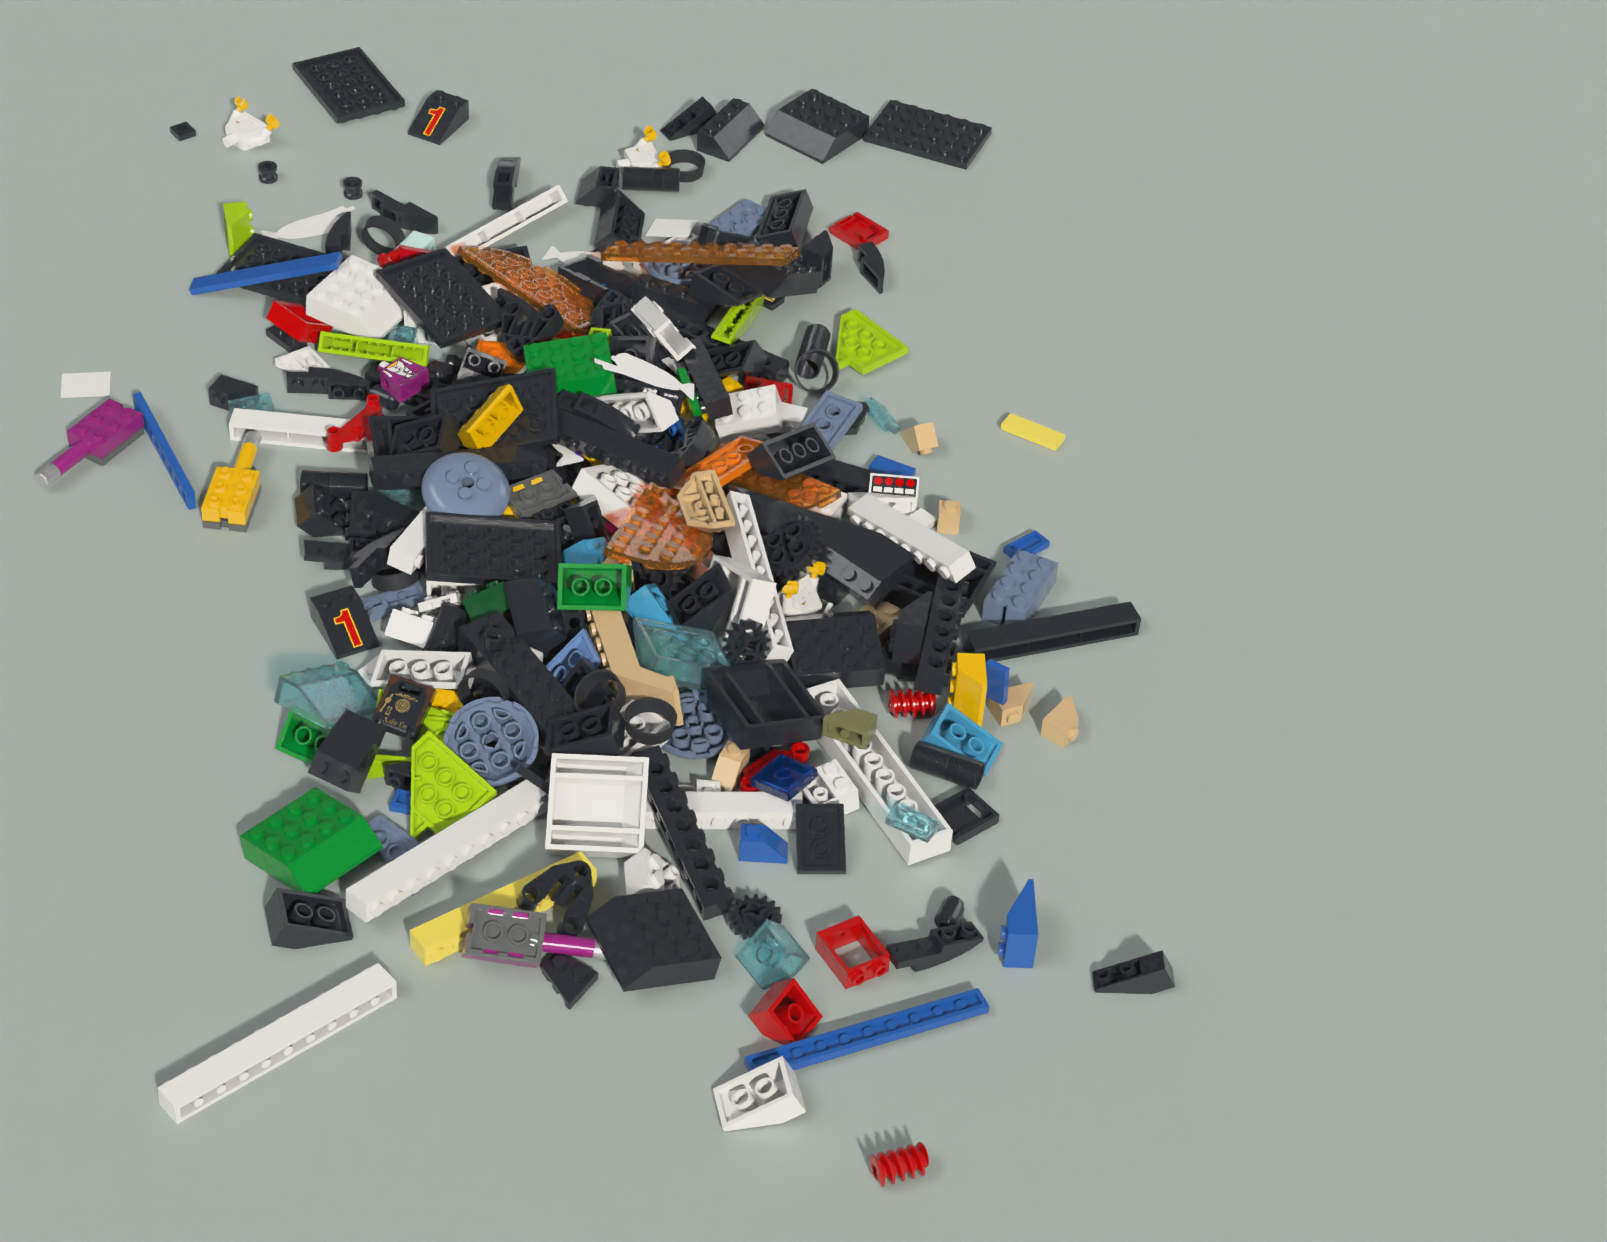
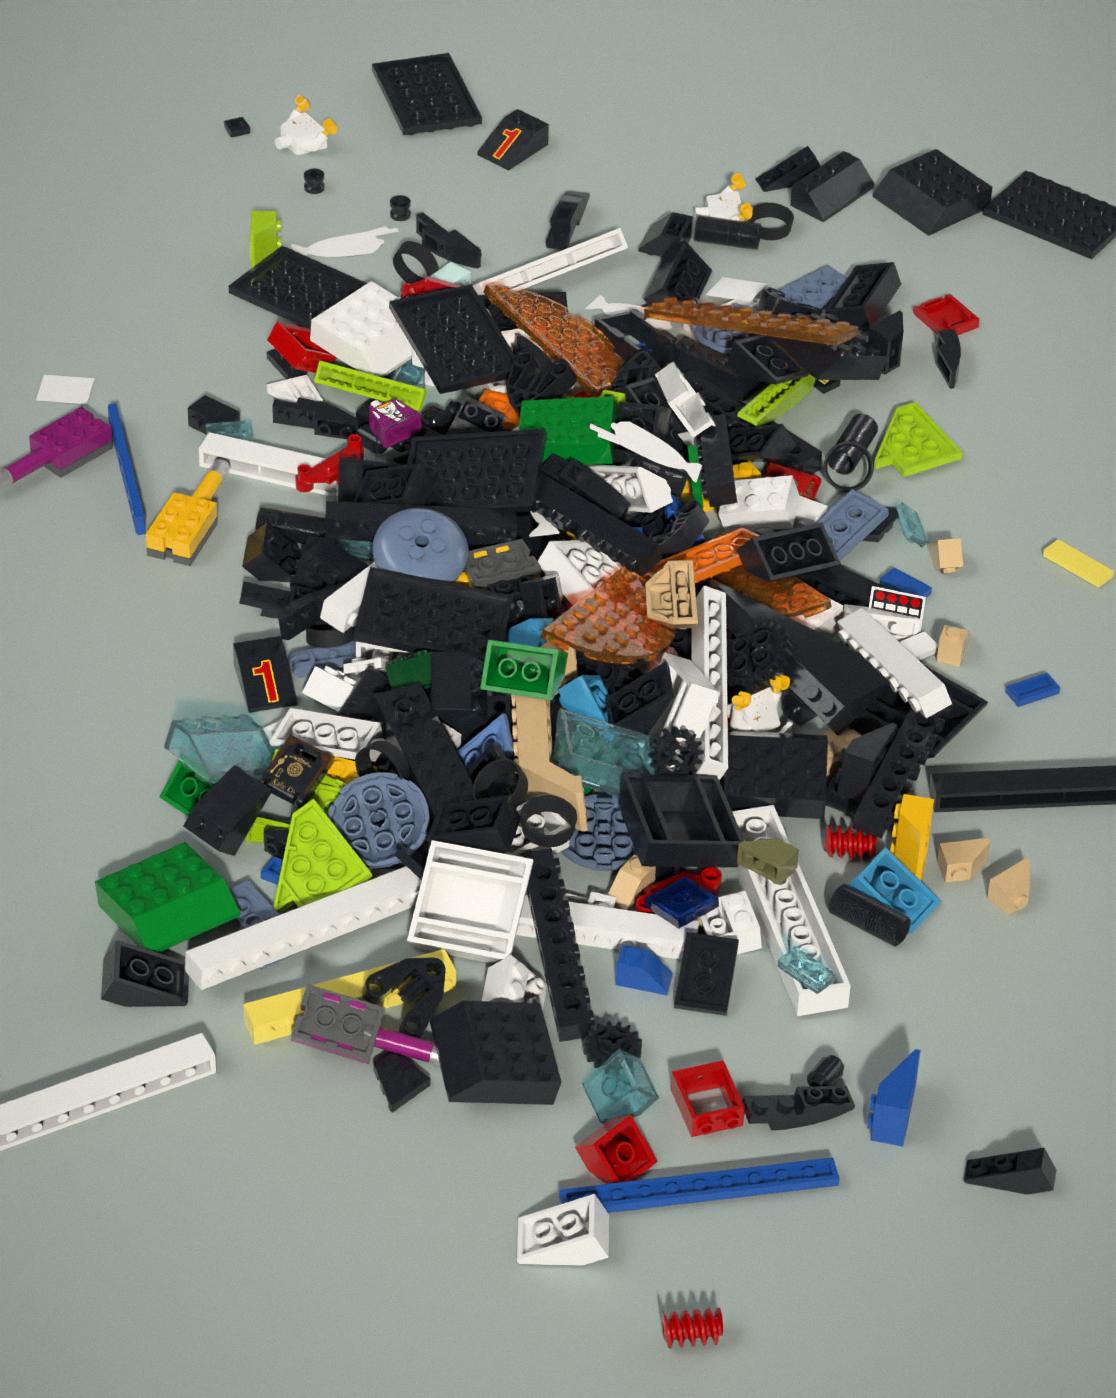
camera: 15 degrees right, 0 degrees up
(266, 273) = (279, 291): blue tile -> none
(339, 235) = (371, 259): black slope -> none
(491, 419) = (465, 477): yellow slope -> none
(963, 820) = (868, 975): black container -> none
(997, 681) = (943, 832): blue tile -> none
(1020, 588) = (1009, 735): sand blue piece -> none

